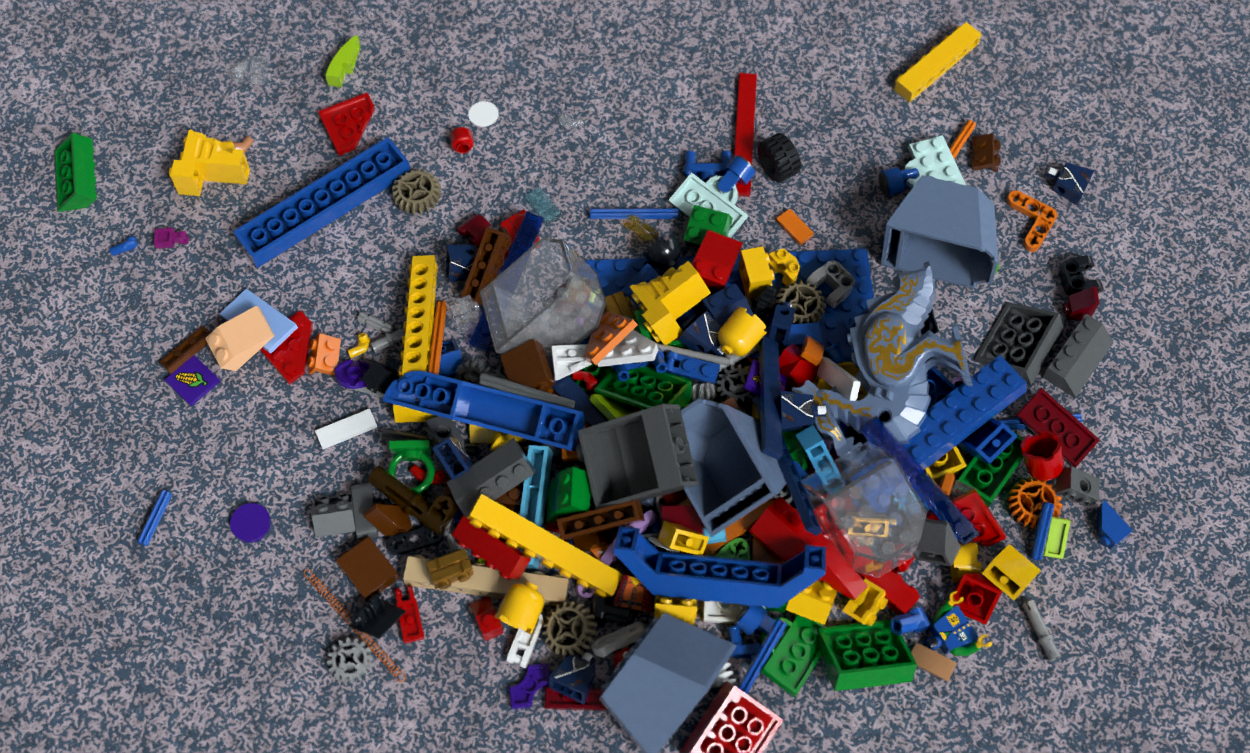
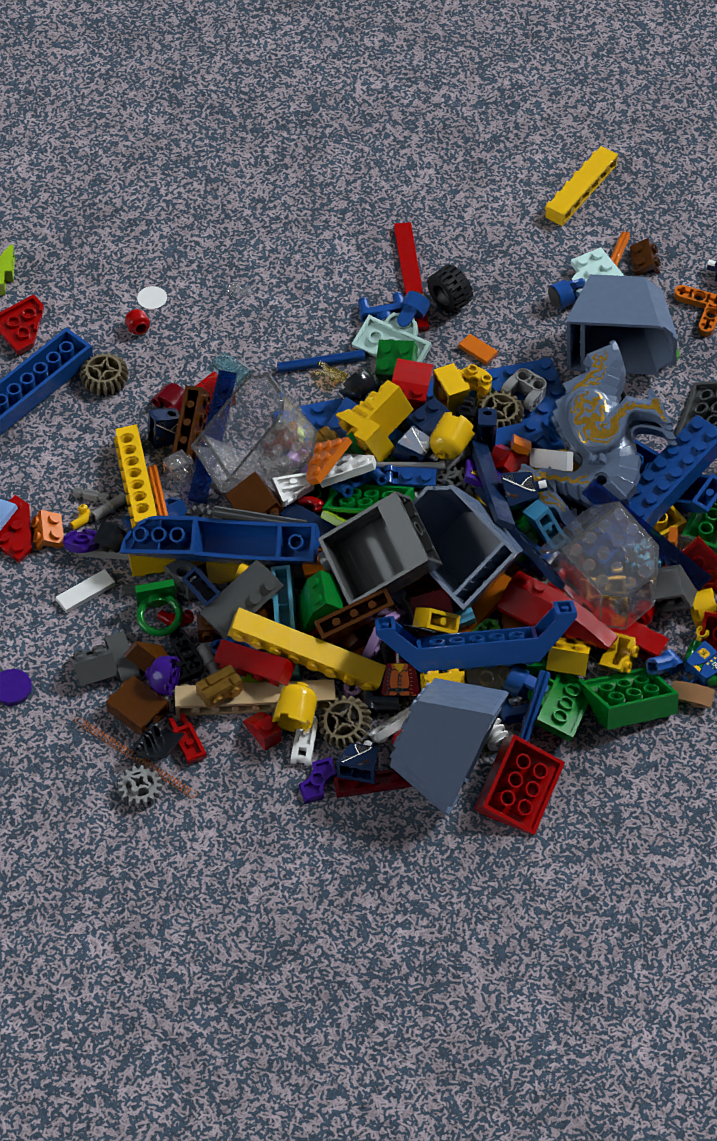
camera: 10 degrees left, 10 degrees down
(398, 543) = (163, 674): none -> dark purple cylinder
(414, 503) = (188, 648): dark brown piece -> none

